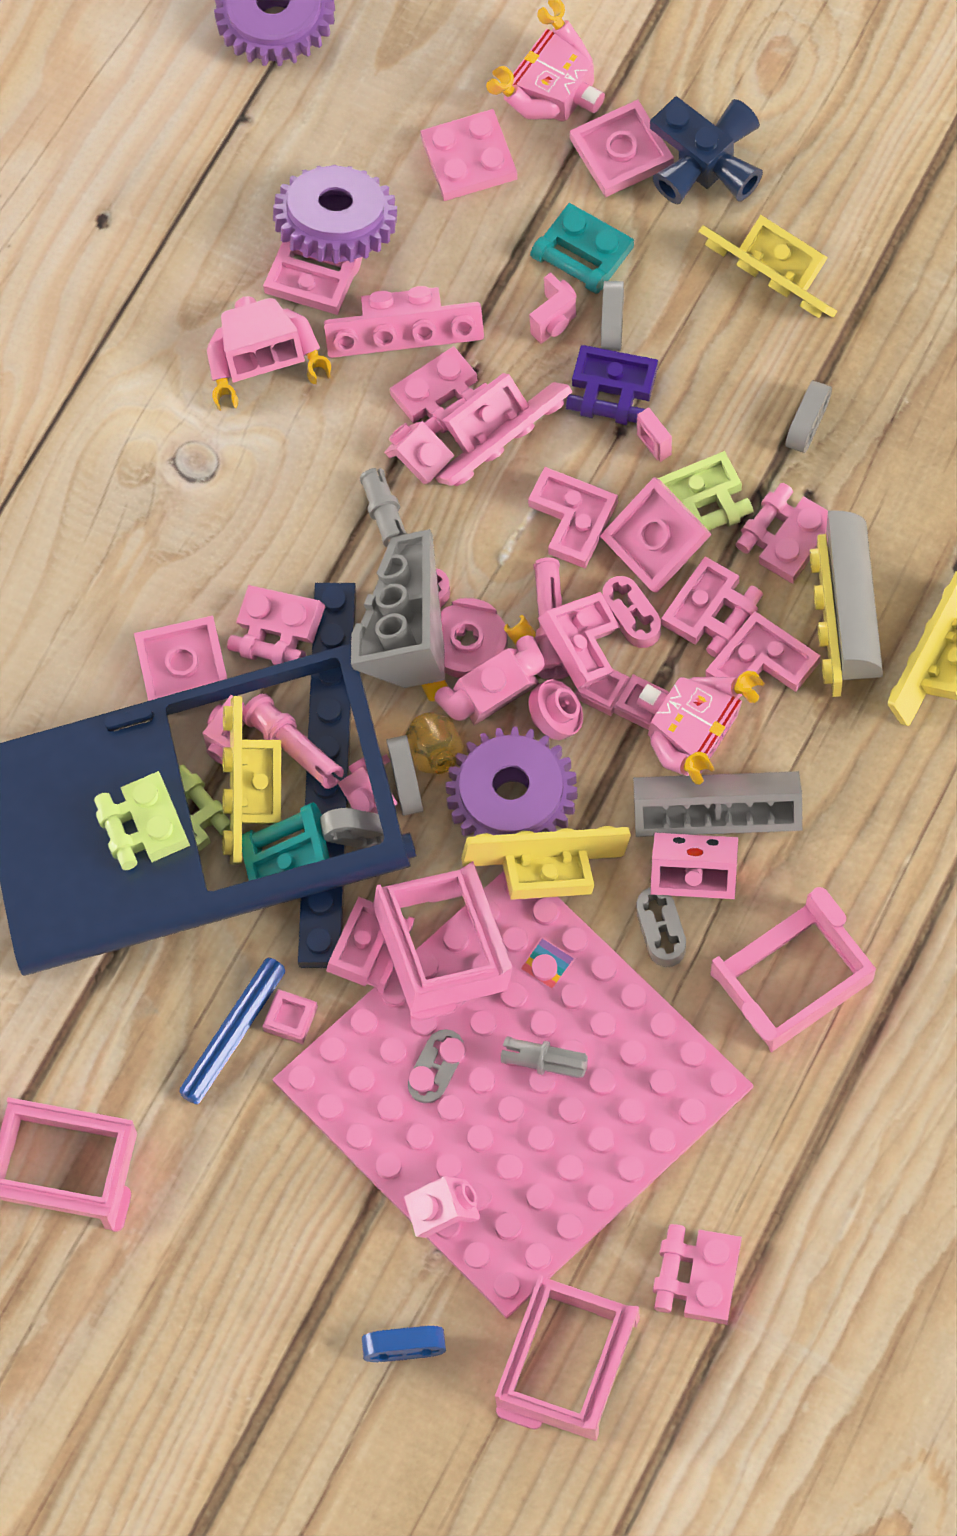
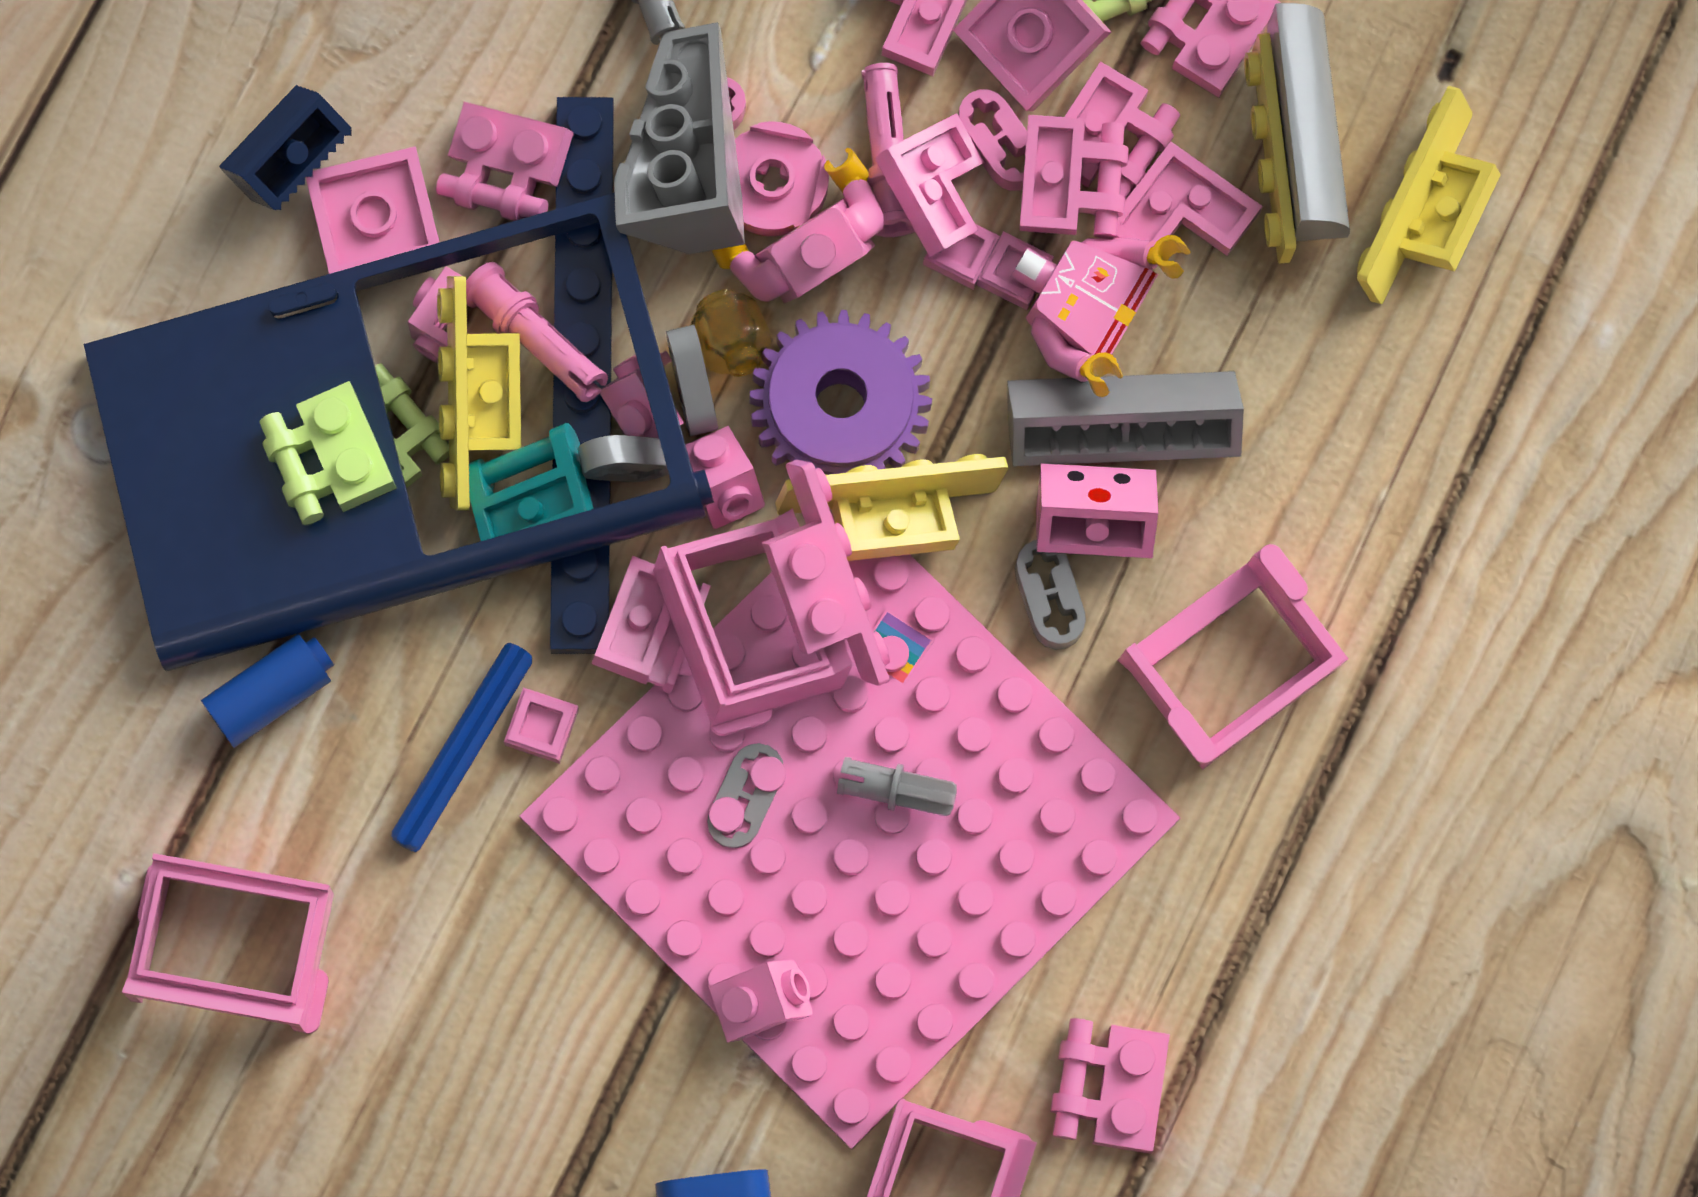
camera: 15 degrees left, 10 degrees up
(95, 987) = (268, 688): none -> blue brick
(120, 615) = (286, 148): none -> dark blue brick
(430, 844) = (729, 476): none -> bright pink bracket
(488, 908) = (817, 582): none -> bright pink bracket
(555, 709) = (899, 284): bright pink plate -> none
(668, 630) = (1054, 176): none -> bright pink plate

